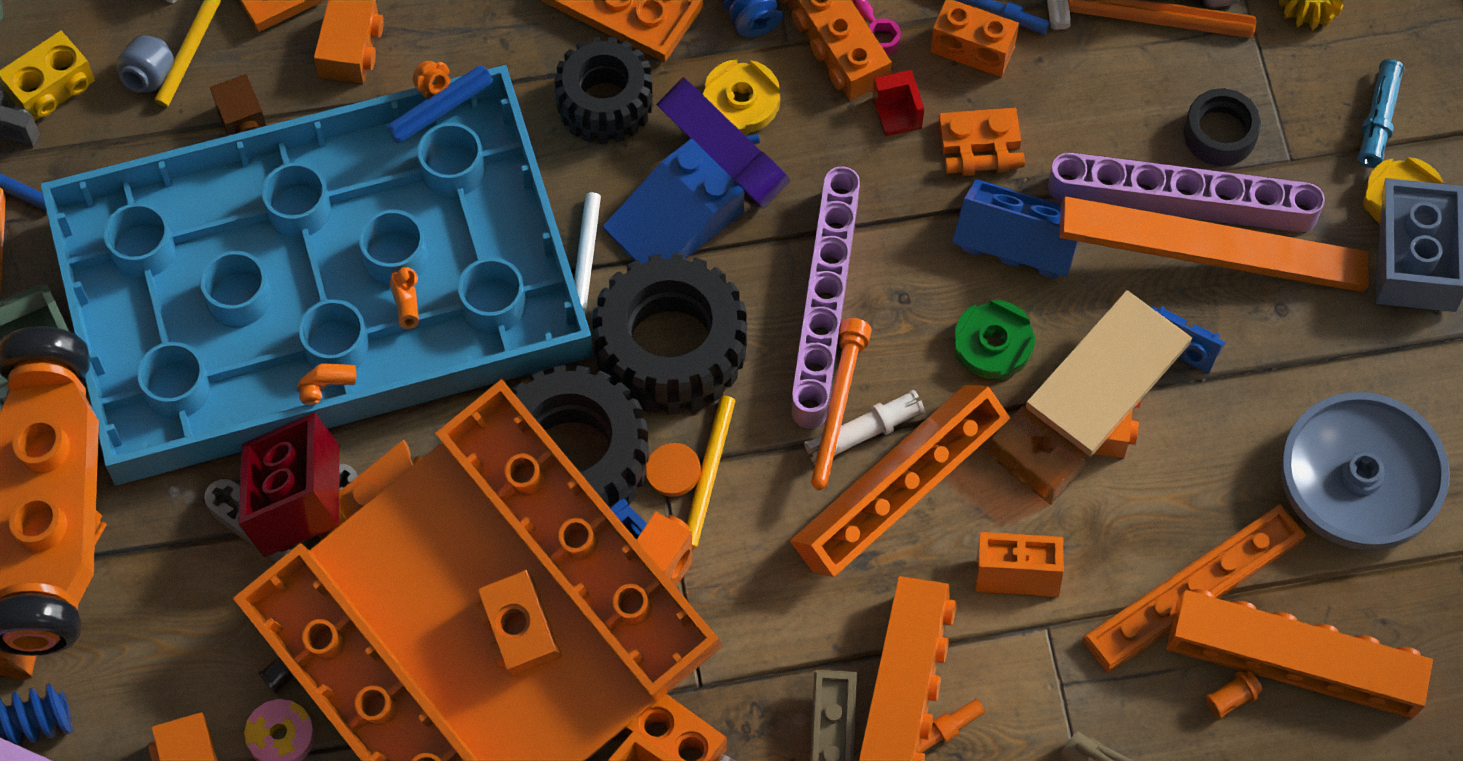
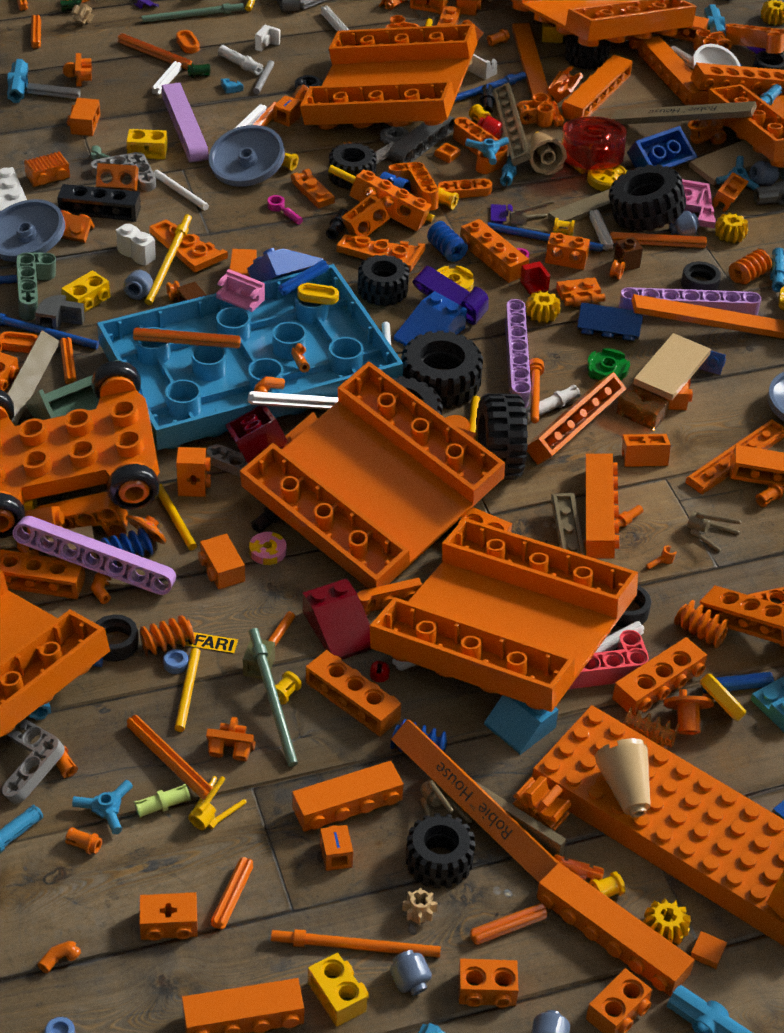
camera: 10 degrees left, 20 degrees down
(61, 684) = (149, 524): none -> orange dish
(126, 642) = (176, 518): none -> yellow bar
(164, 556) = (192, 472): none -> orange brick
(196, 243) = (187, 338): none -> orange axle
(207, 79) = (172, 290): none -> orange bush
(313, 133) = (241, 290): none -> bright pink hinge
(376, 409) = (291, 400): none -> white axle
(388, 64) = (280, 263): none -> slope
(424, 75) = (297, 266): orange plate -> none
(460, 145) = (318, 293): none -> yellow tile
(536, 642) = (394, 460): orange brick -> none
(738, 542) = (503, 430): none -> black tyre
(898, 180) = (543, 307): none -> yellow gear
(1063, 90) = (617, 269): none -> orange bush
(1091, 55) = (628, 251): none -> reddish brown brick
(1325, 106) = (750, 267): none -> orange piece

